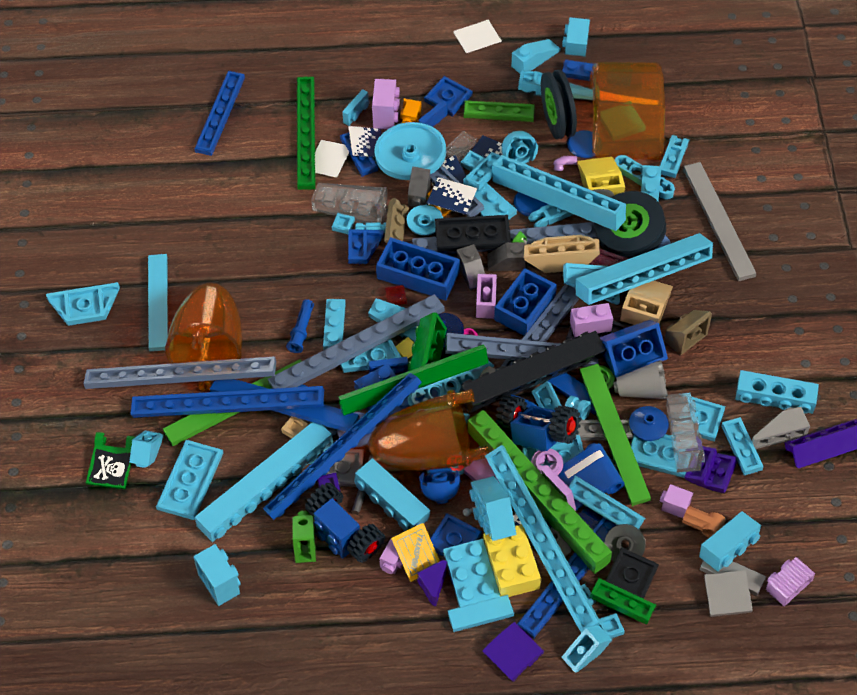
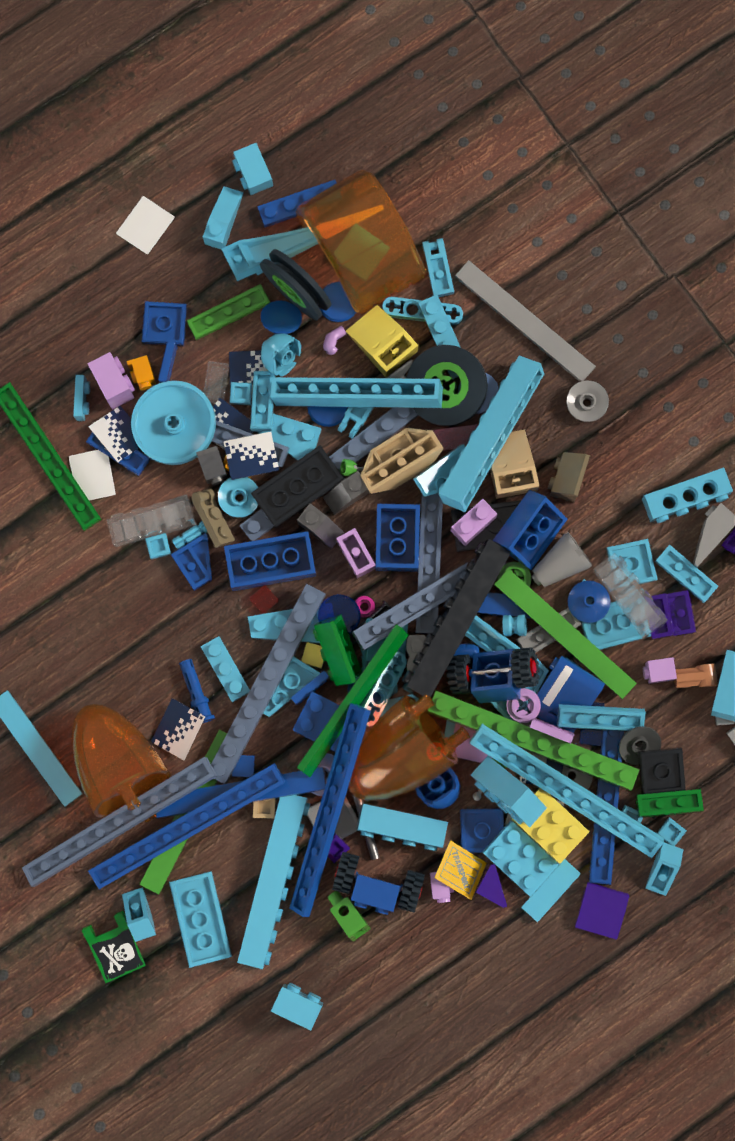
camera: 30 degrees left, 25 degrees up
(270, 340) = (178, 729): none -> sticker
(536, 129) = (281, 317): none -> blue piece
(735, 285) = (587, 391): none -> light grey dish

